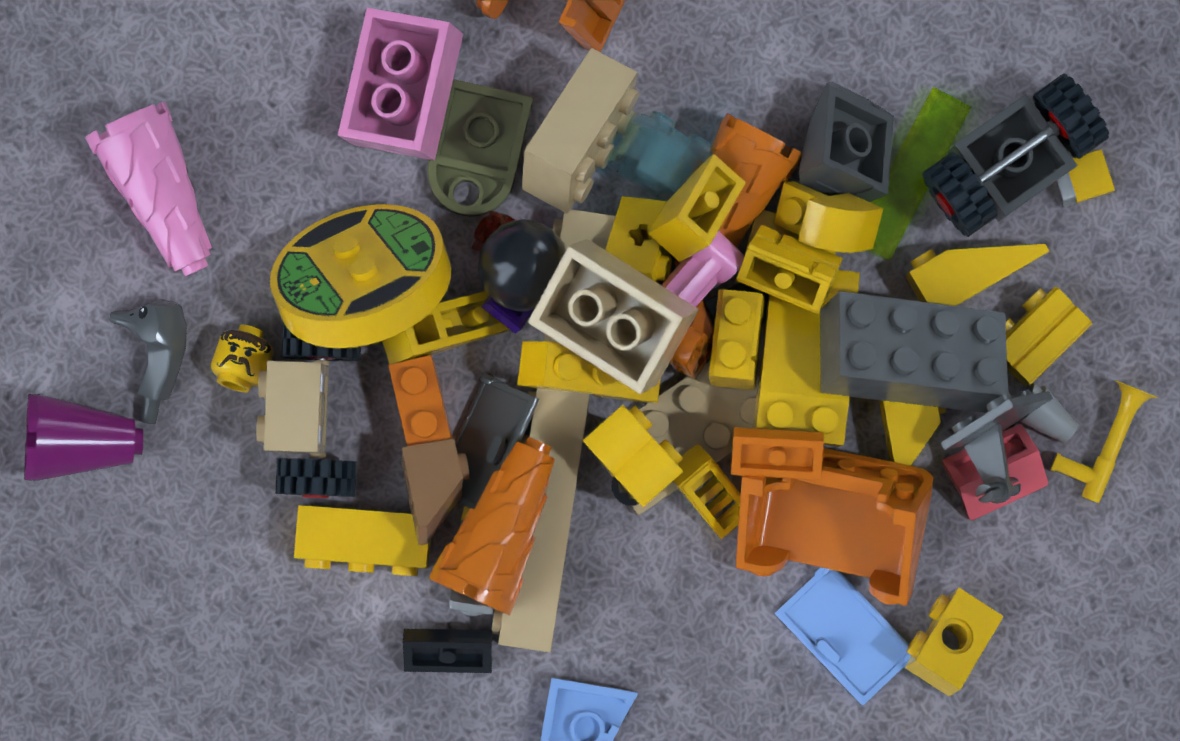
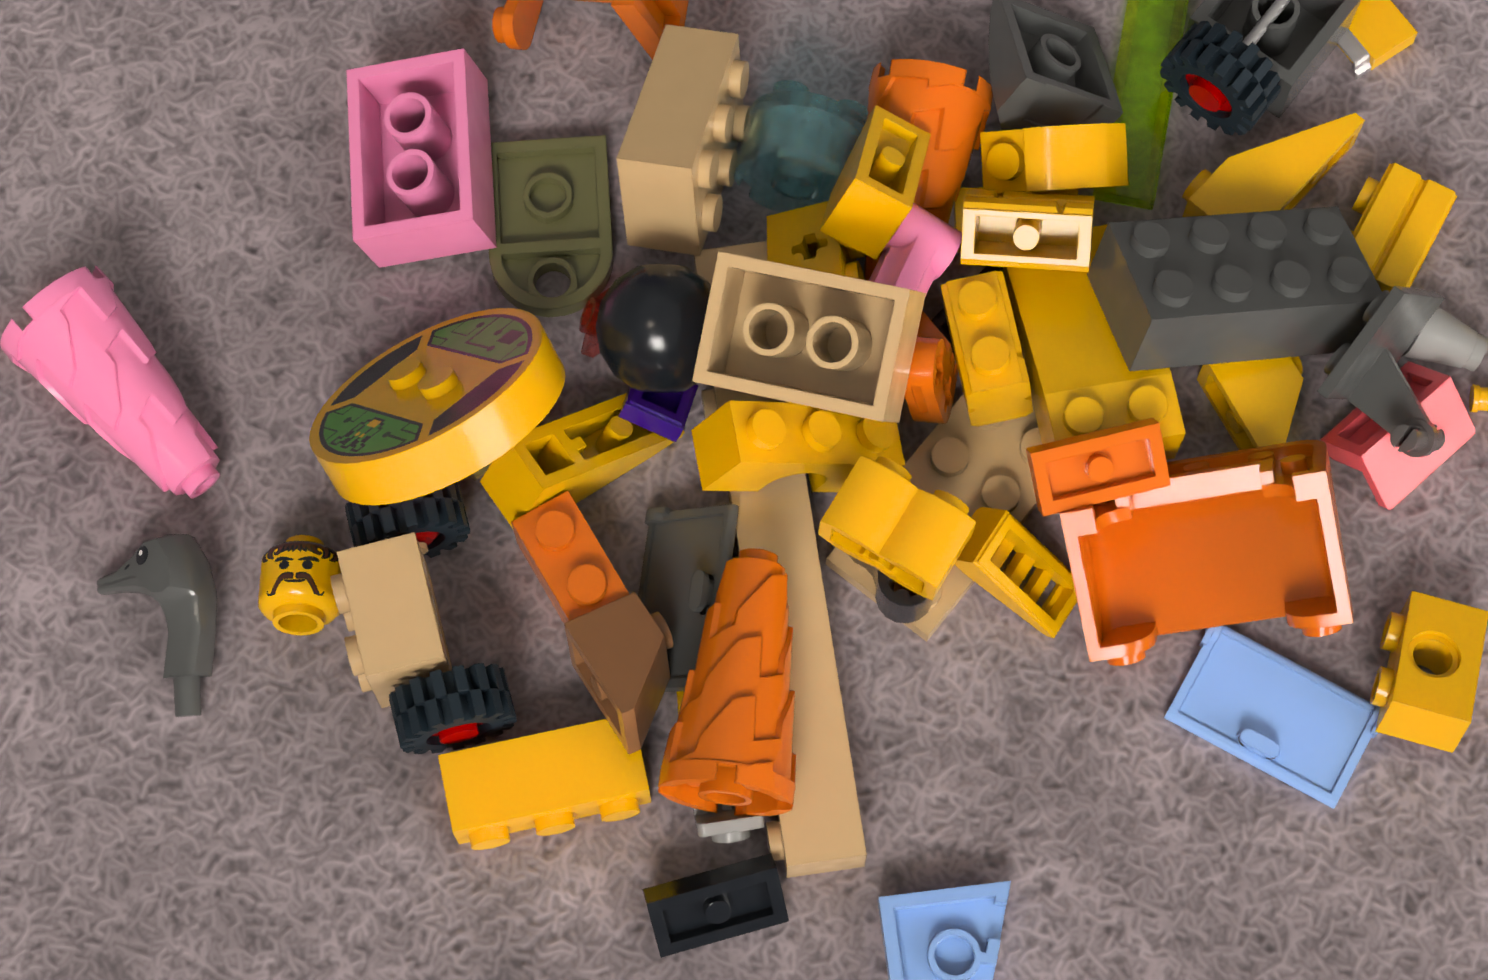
camera: 15 degrees left, 15 degrees down
(75, 439) = (88, 761): magenta cone -> none

